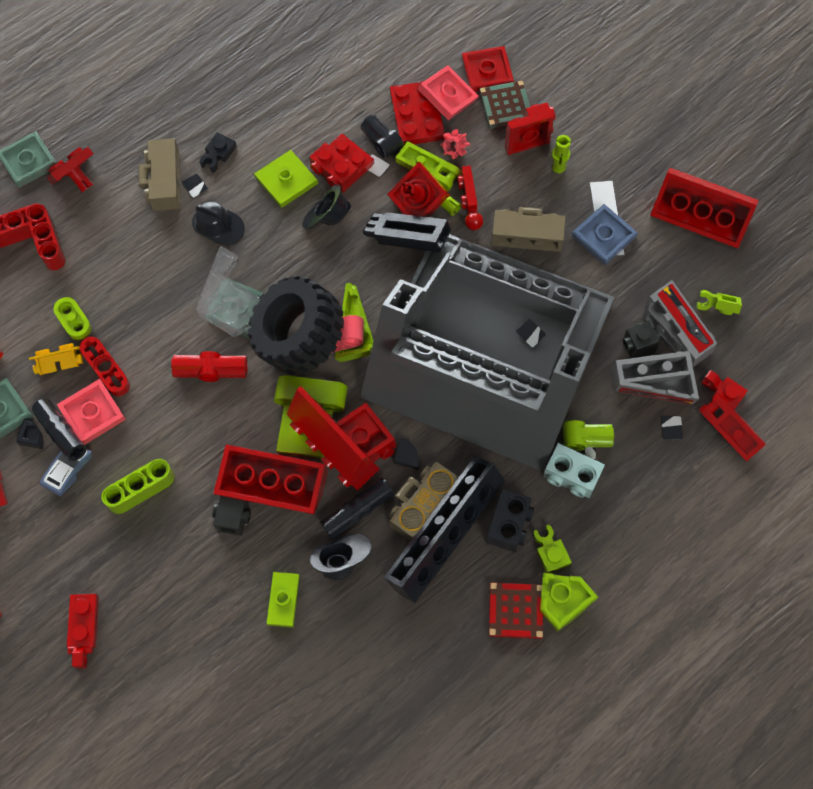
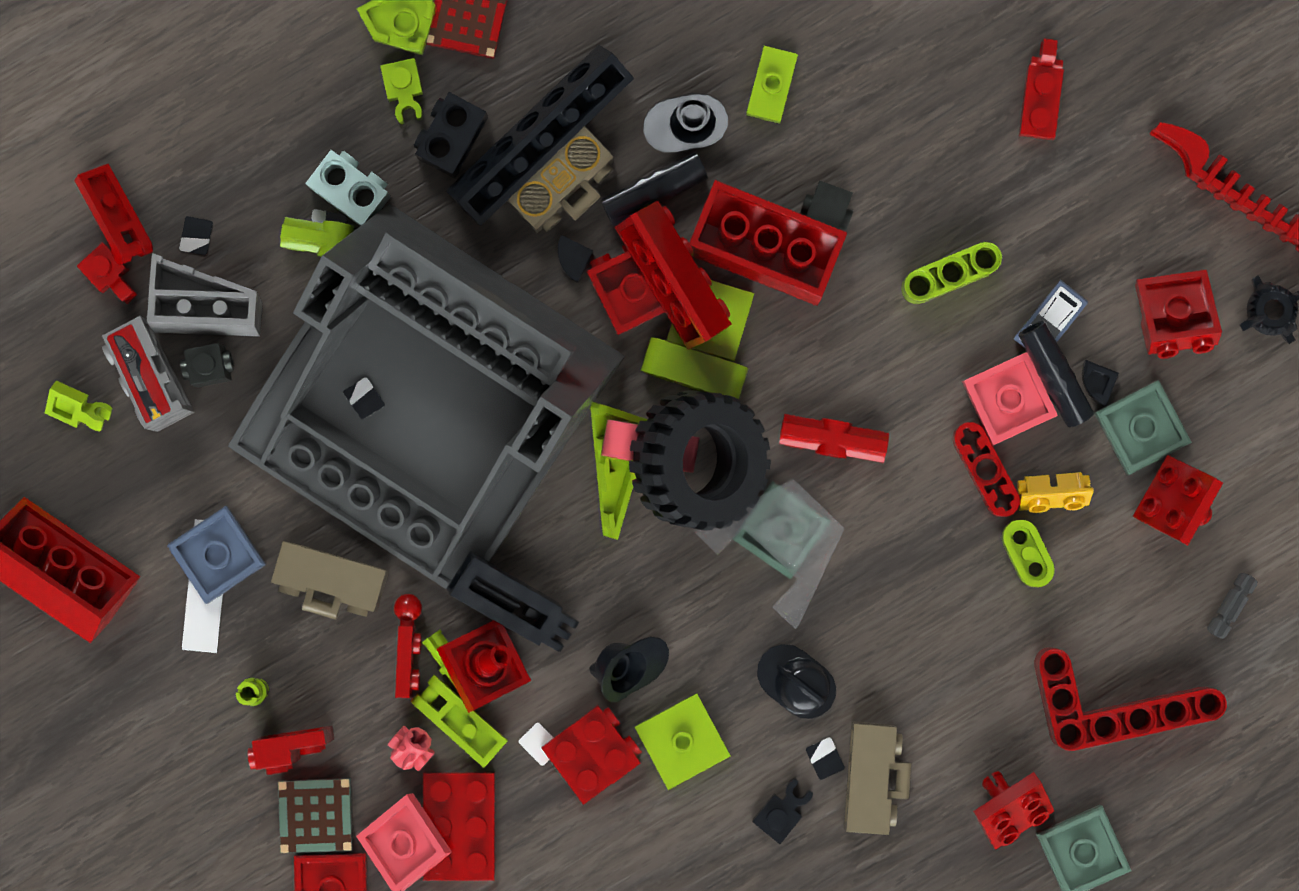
camera: 175 degrees left, 20 degrees up
(384, 140) = (519, 780): black piece -> none

